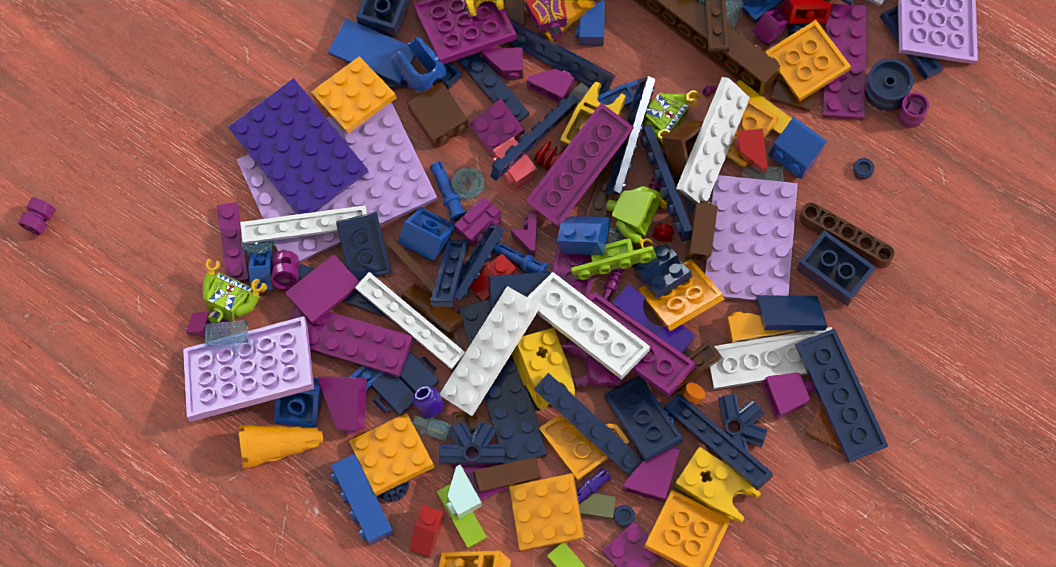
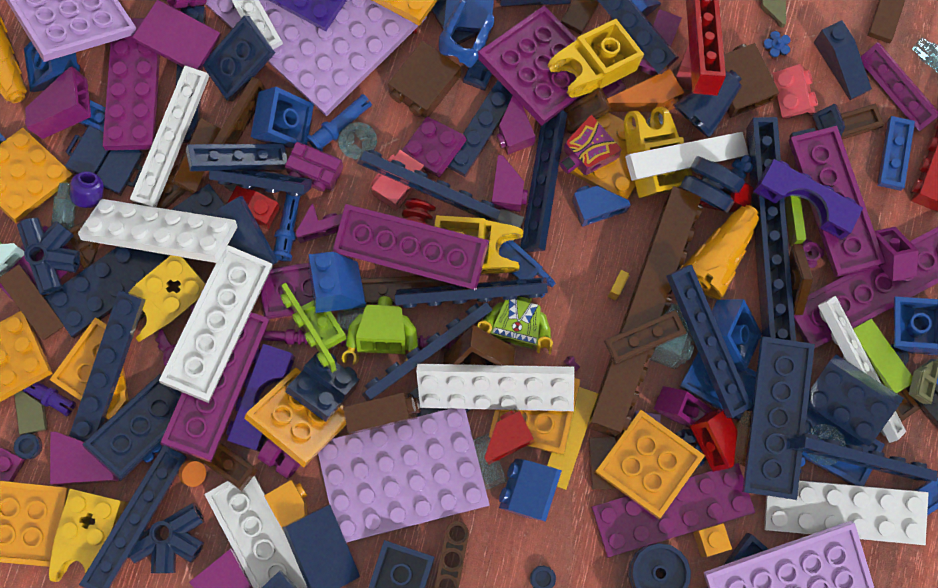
camera: 65 degrees right, 5 degrees up
(662, 34) = (618, 285): none -> yellow tile
(663, 232) = (373, 370): red plate -> none
(701, 326) = (272, 456): none -> magenta wheel
(877, 41) = (712, 540): none -> light orange brick

